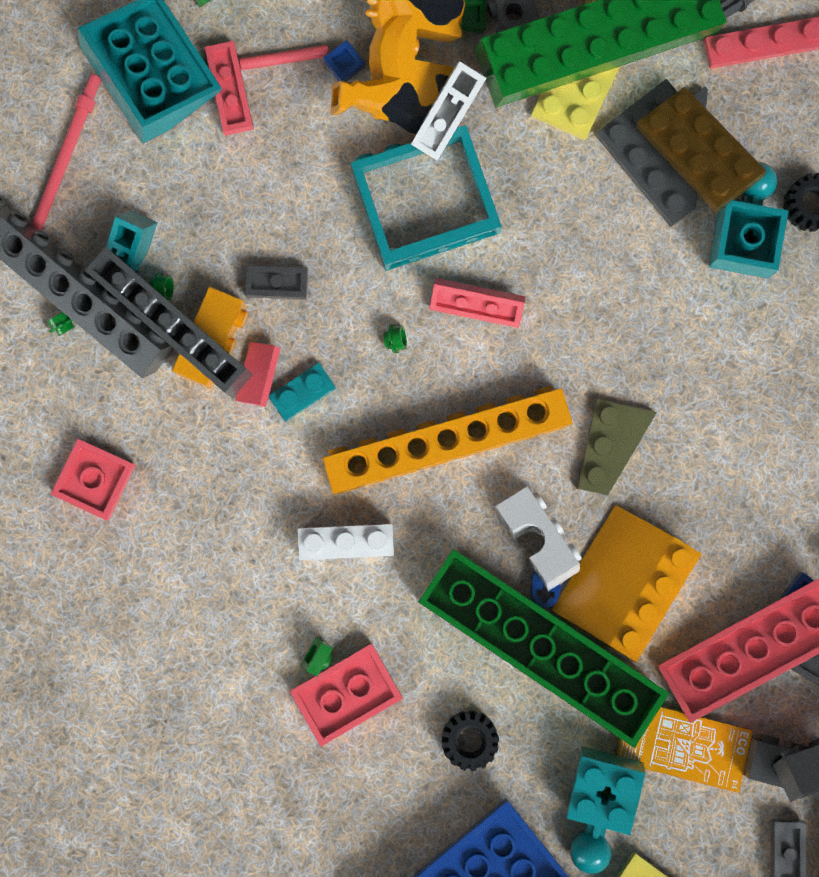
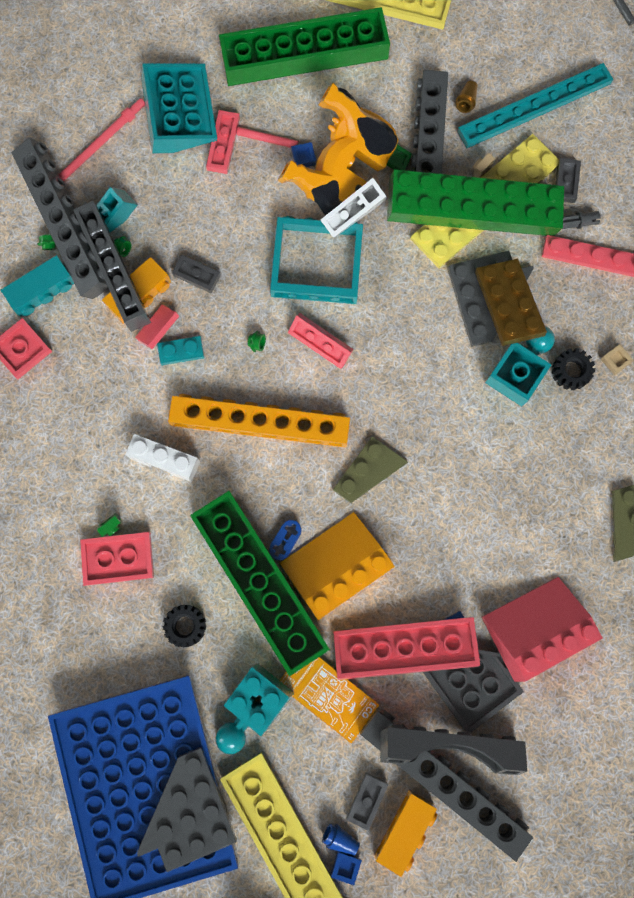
camera: 20 degrees right, 5 degrees down
(78, 388) = (38, 287): none -> teal brick
(526, 514) = (289, 491): white arch -> none

